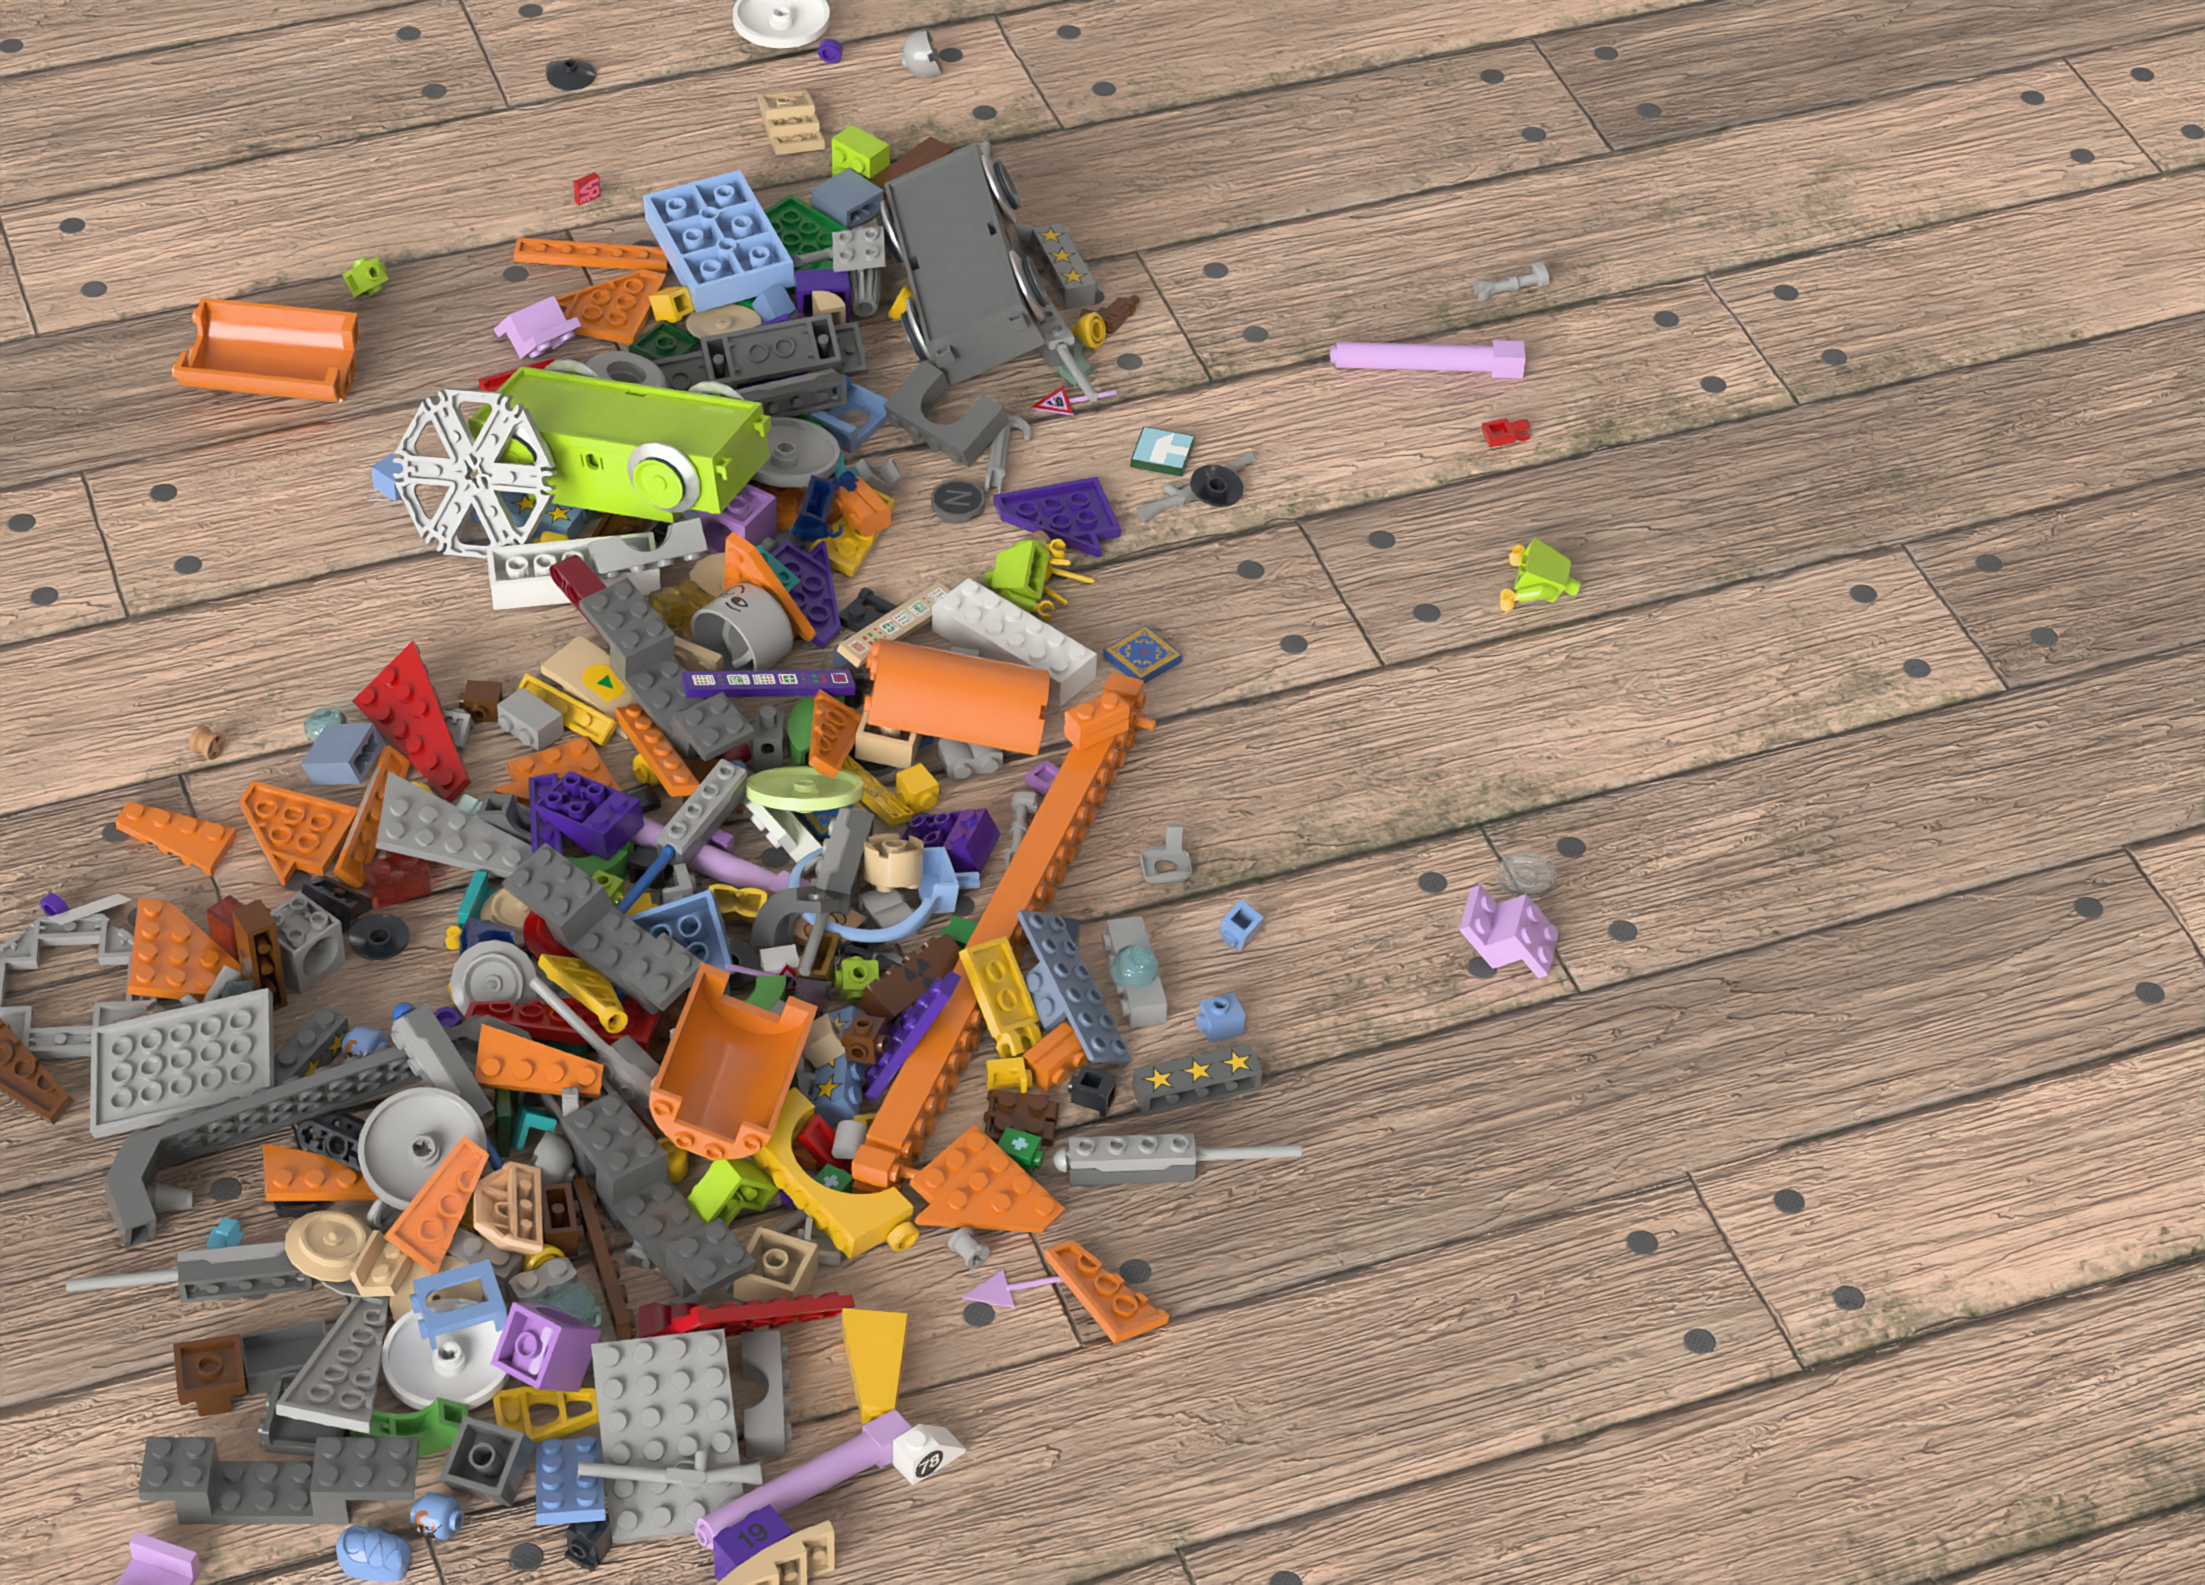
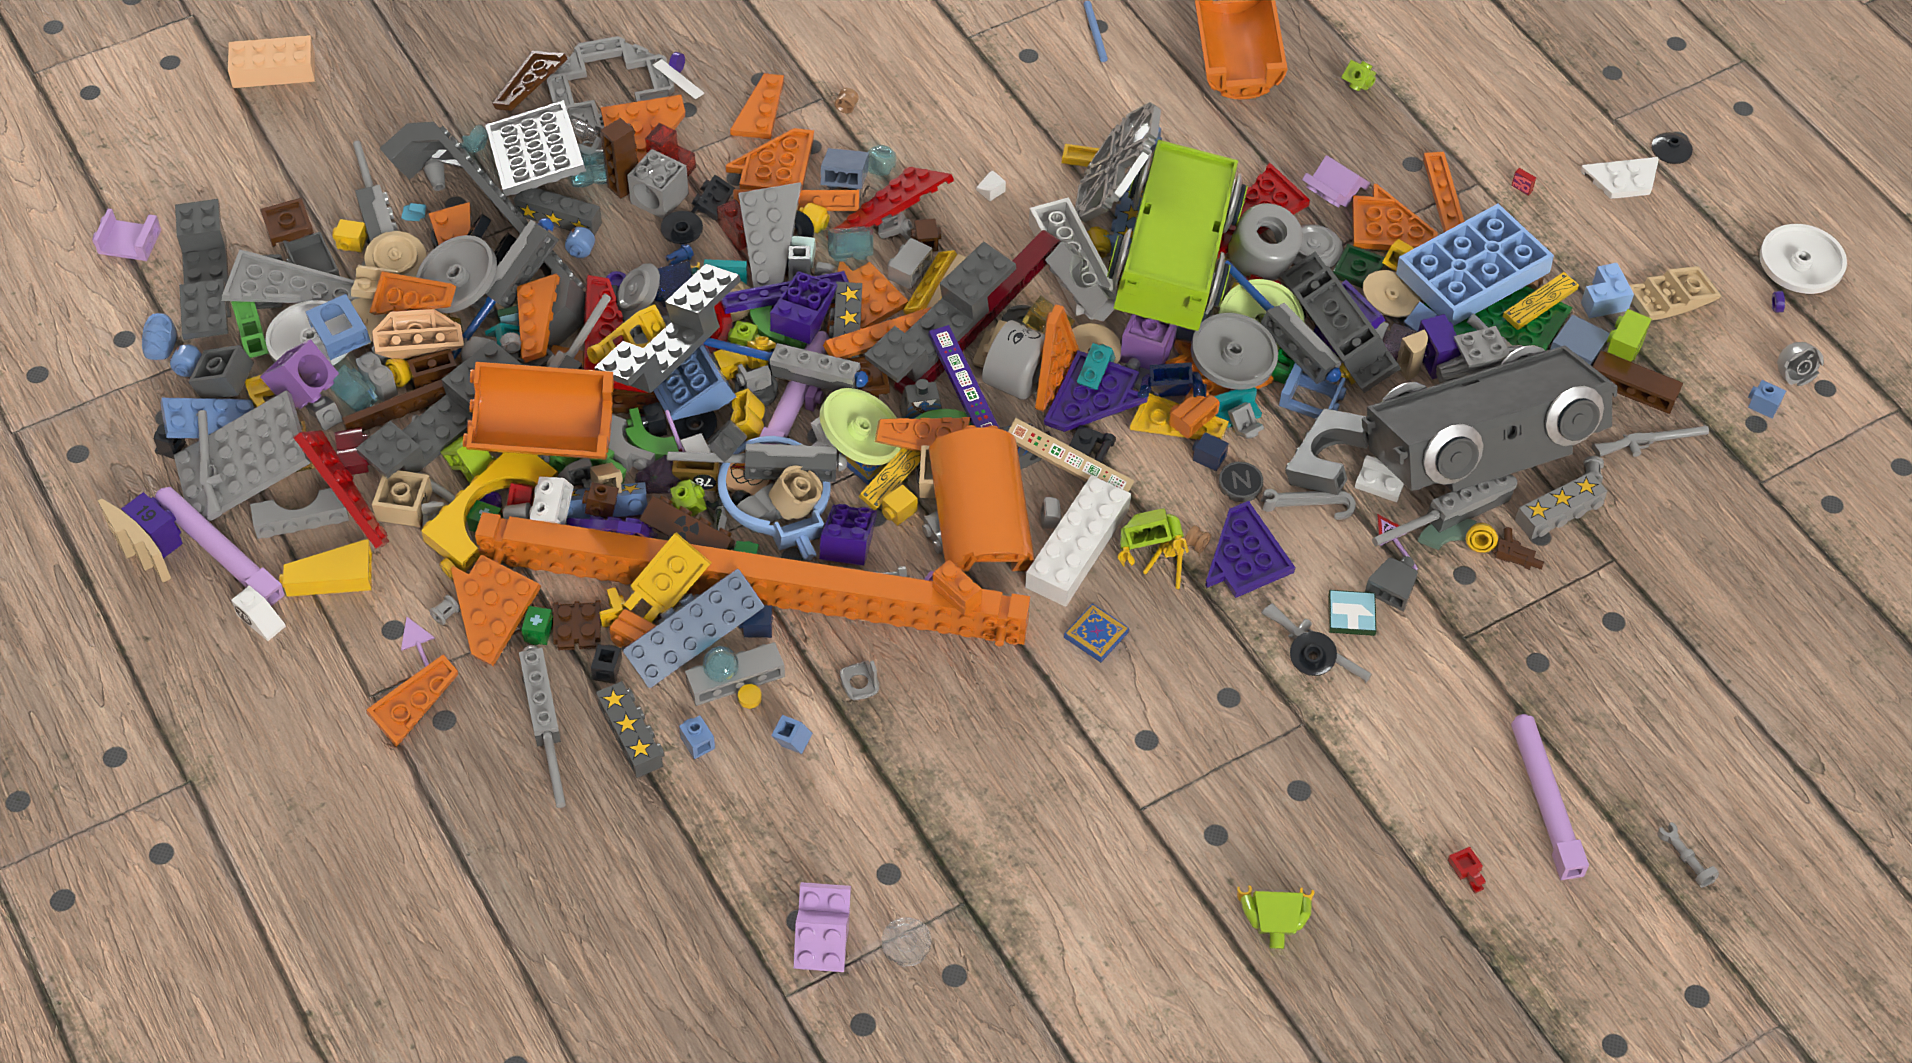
camera: 80 degrees right, 10 degrees up
(113, 1136) = (476, 140): none -> clear light blue hair
(175, 493) = (1095, 31): none -> medium blue bar
(256, 1304) = (350, 235): none -> yellow brick
(393, 542) = (1078, 155): none -> yellow tile
(417, 628) = (991, 186): none -> white slope
(424, 943) = (680, 255): none -> blue pin
(478, 766) = (850, 242): none -> clear light blue brick
(604, 117) = (1624, 177): none -> white wing
(626, 778) = (847, 309): none -> dark grey brick
(634, 868) = (760, 343): none -> yellow bracket
(775, 160) = (1608, 293): none -> light blue brick
(779, 213) = (1540, 300): none -> yellow tile
(852, 1091) = (551, 500): none -> white brick
(912, 513) = (1210, 451): none -> dark blue brick
(961, 91) = (1766, 398): none -> medium blue brick
(989, 384) = (1378, 480): none -> white bracket
(1135, 407) = (1393, 582): none -> dark grey torso
(1169, 967) = (749, 696): none -> yellow tile

